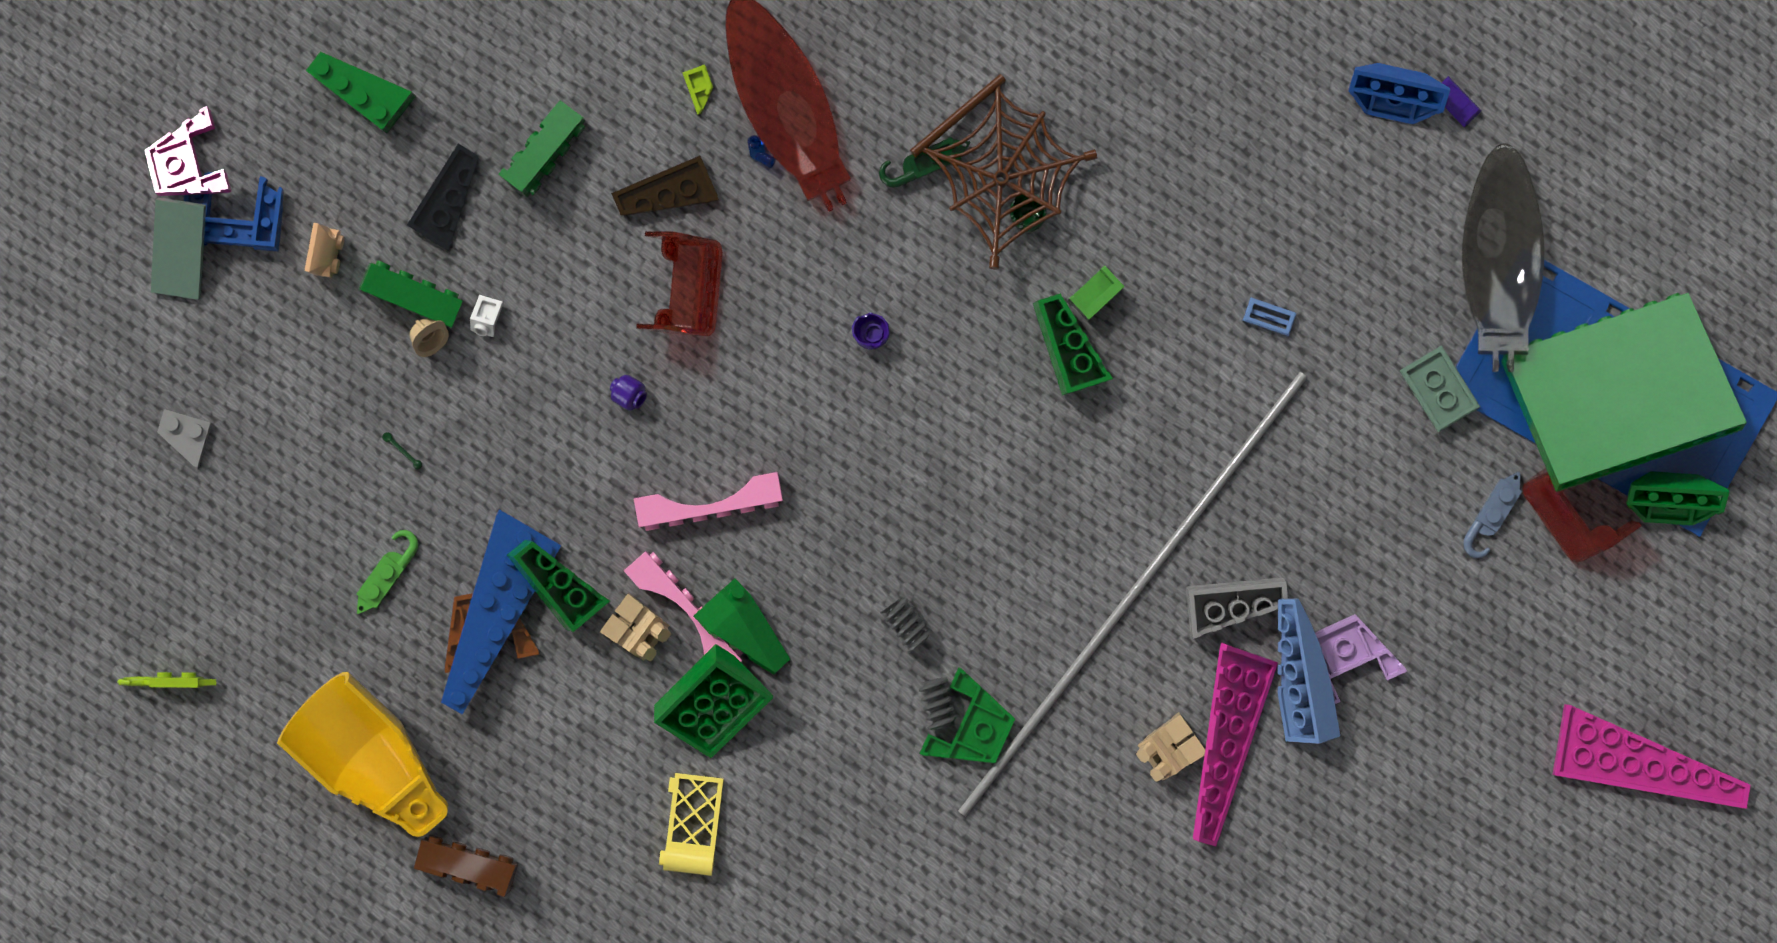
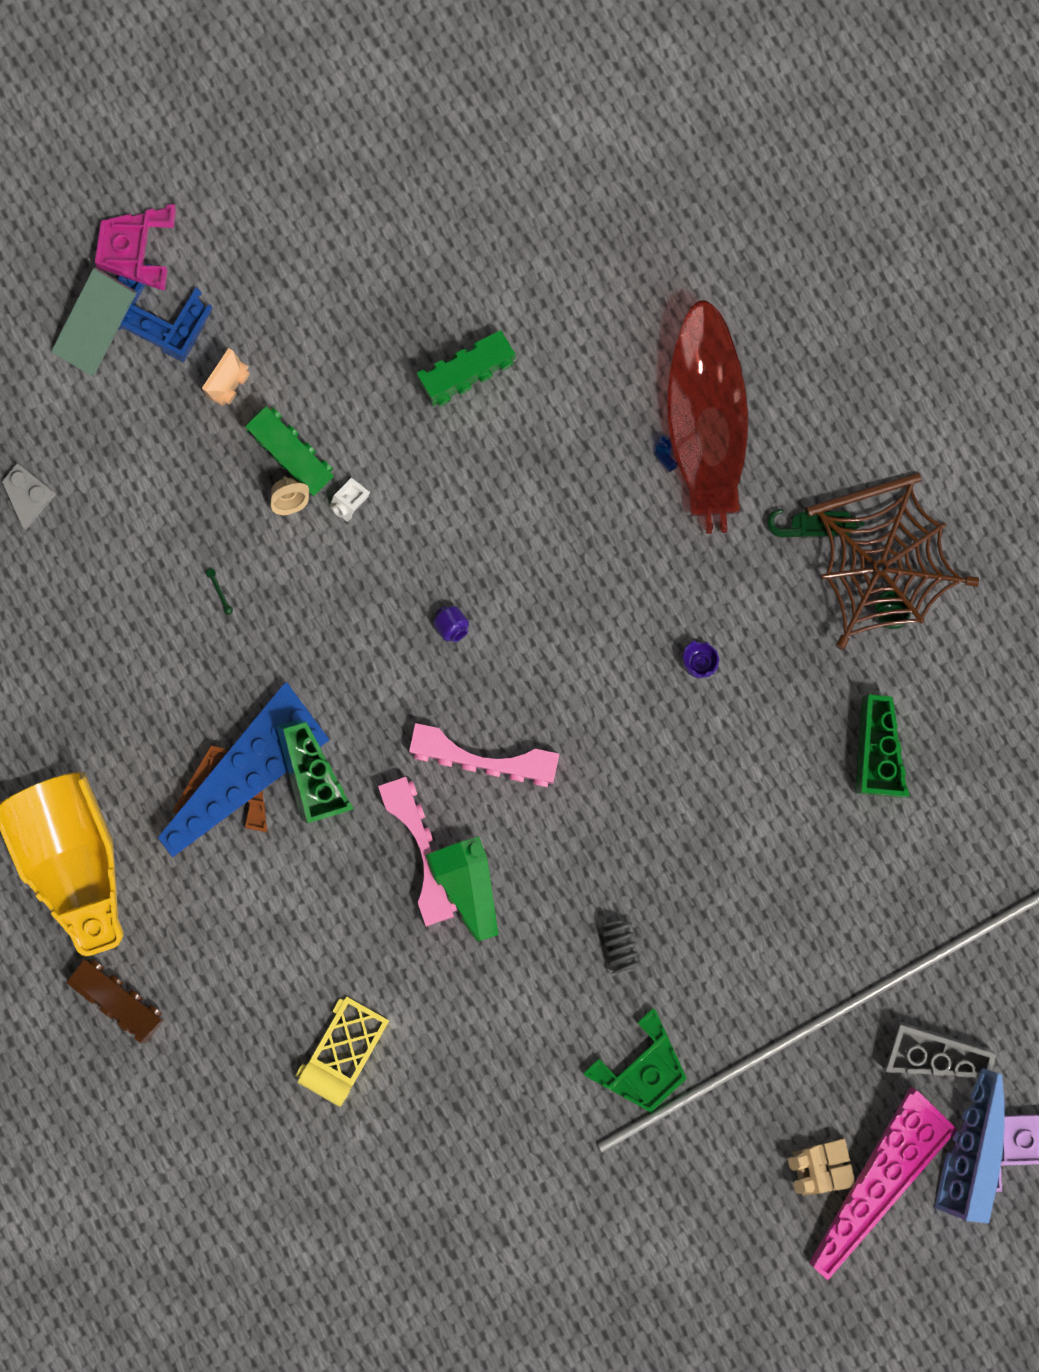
camera: 25 degrees right, 5 degrees down
(368, 94) = (326, 252): green wedge -> none
(386, 574) = (156, 699): bright green plate -> none
(443, 203) = (353, 380): black wing -> none
(645, 632) = (371, 854): tan hips -> none
(669, 189) = (571, 453): dark brown wing -> none
(693, 284) = (553, 548): clear red windscreen -> none
(698, 86) = (633, 370): lime tile -> none
(711, 702) = (409, 943): green slope -> none
(937, 703) = (619, 1033): dark grey piece -> none
(1096, 293) = (925, 711): bright green panel -> none

